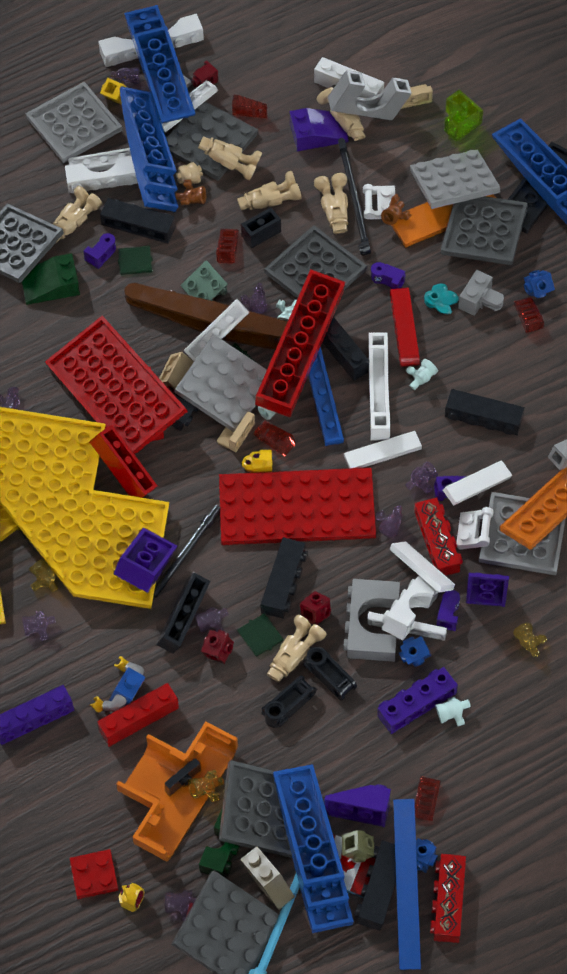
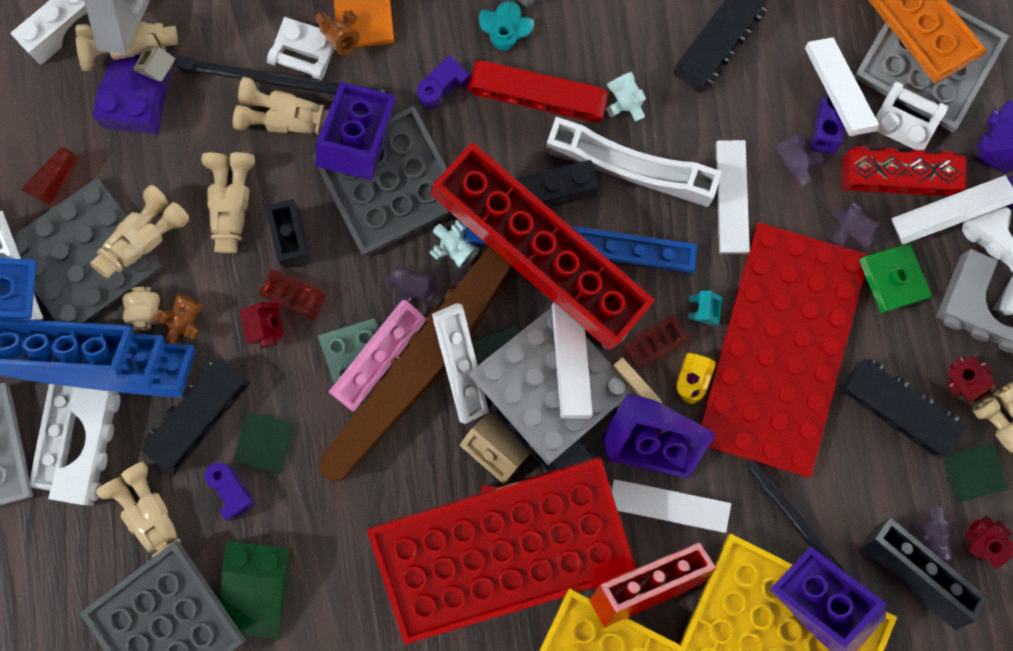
camera: 70 degrees left, 20 degrees up
(175, 473) = (671, 506): none -> white tile
(197, 233) = (262, 324): none -> dark red brick
(204, 290) = (377, 355): none -> bright pink plate
(211, 444) = (655, 438): none -> dark purple slope
(234, 387) = (571, 366): none -> white tile
(305, 456) = (709, 308): none -> teal tile
(334, 129) = (154, 63): none -> dark tan slope
(335, 237) = (354, 131): none -> dark purple slope
(366, 551) = (895, 278): none -> green plate

